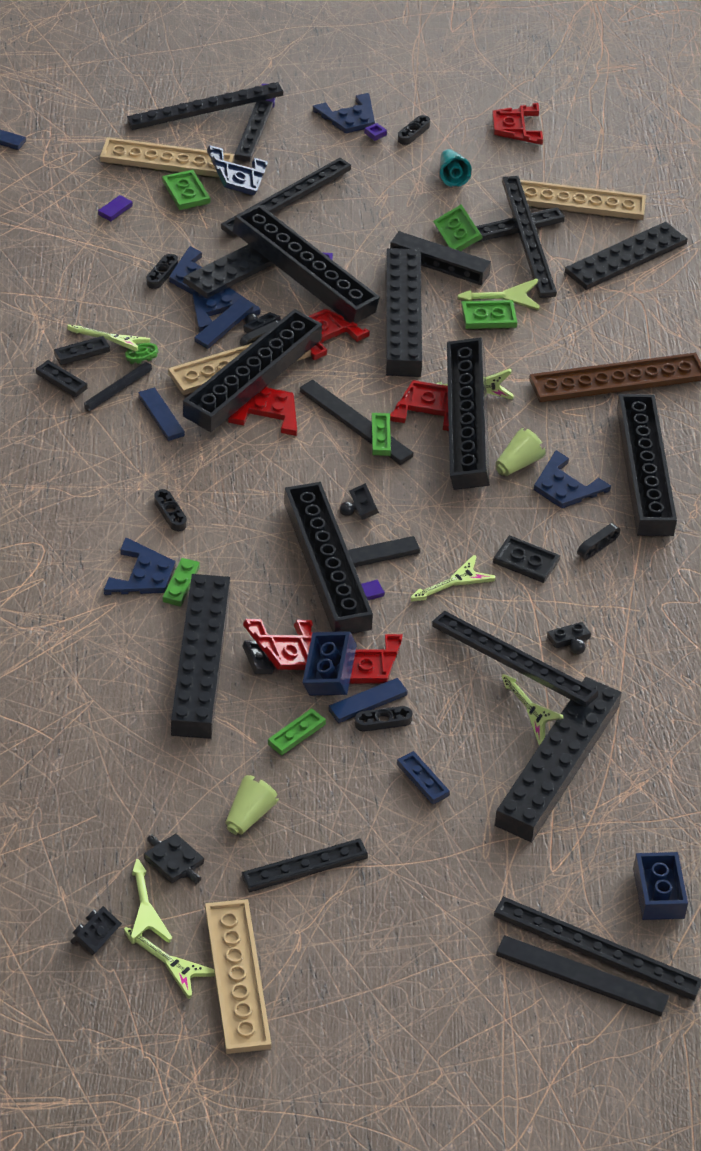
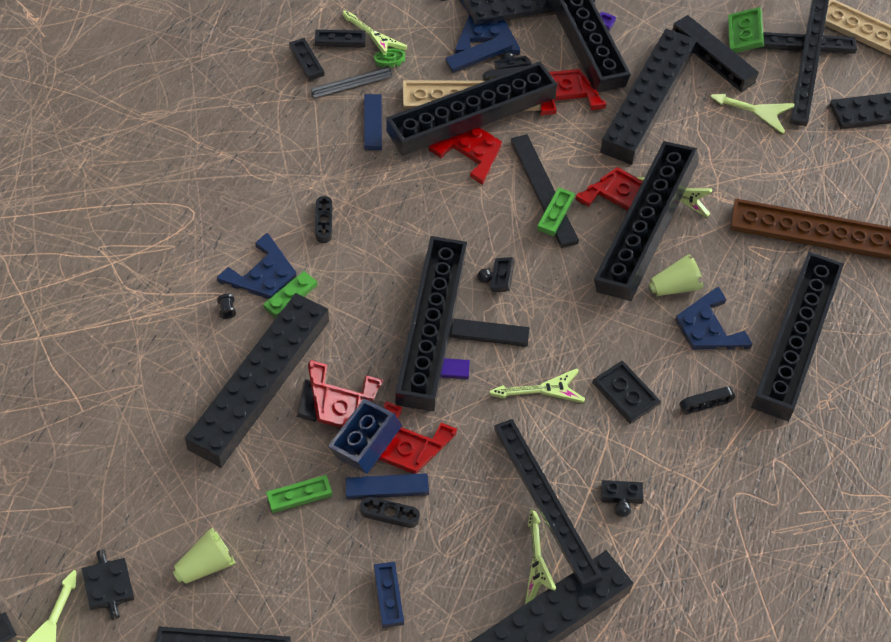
camera: 25 degrees right, 10 degrees up
(130, 609) = (226, 306): none -> black bush
(489, 314) = (730, 124): bright green plate -> none

